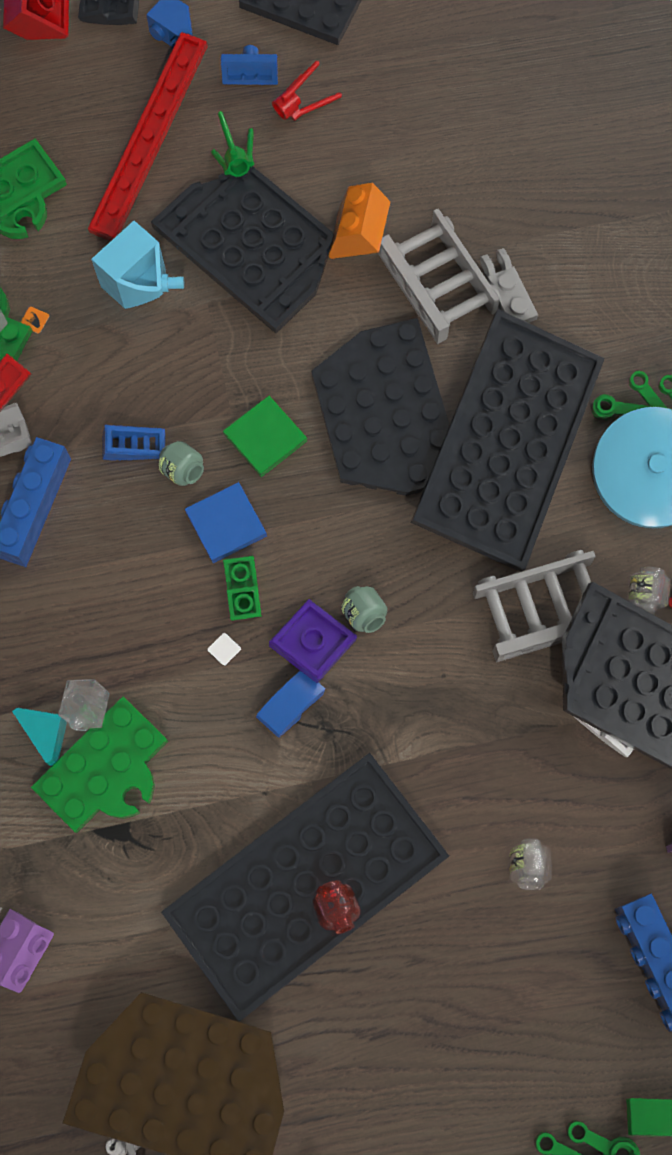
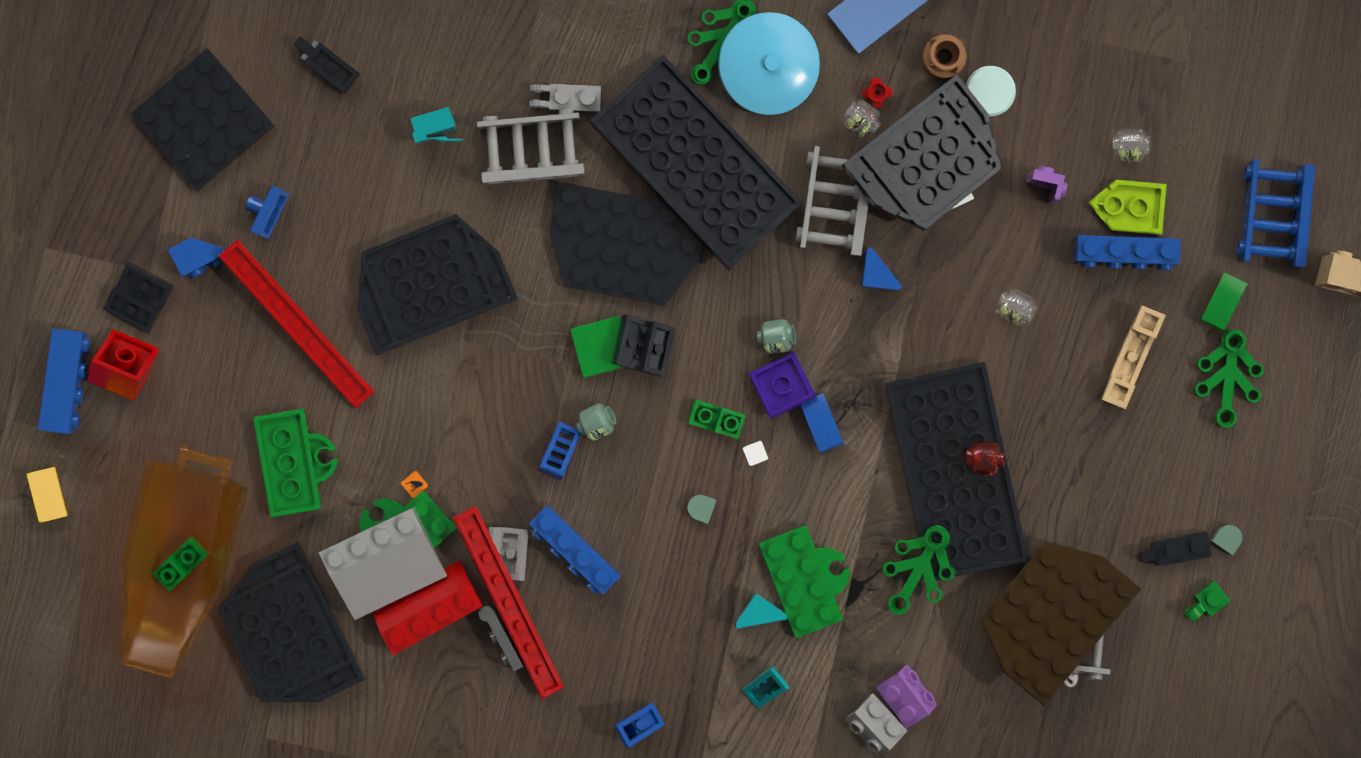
camera: 65 degrees left, 15 degrees up
(84, 704) = (745, 577): clear brick -> none
(133, 268) = (419, 386): medium azure piece -> none
(136, 617) = (701, 507): none -> sand green tile
(175, 893) = (921, 566): none -> green plant
(225, 522) = (657, 408): blue tile -> none
(236, 160) = (356, 262): green plant -> none
(286, 475) = (643, 345): none -> black slope
(287, 103) = (315, 195): red plant -> none
(360, 222) = (460, 190): orange slope -> none
(413, 174) = (432, 125): none -> teal piece
(422, 61) = (327, 64): none -> black hinge
(485, 686) = (876, 273): none -> blue slope
(542, 1034) = (1132, 356): none -> tan slope

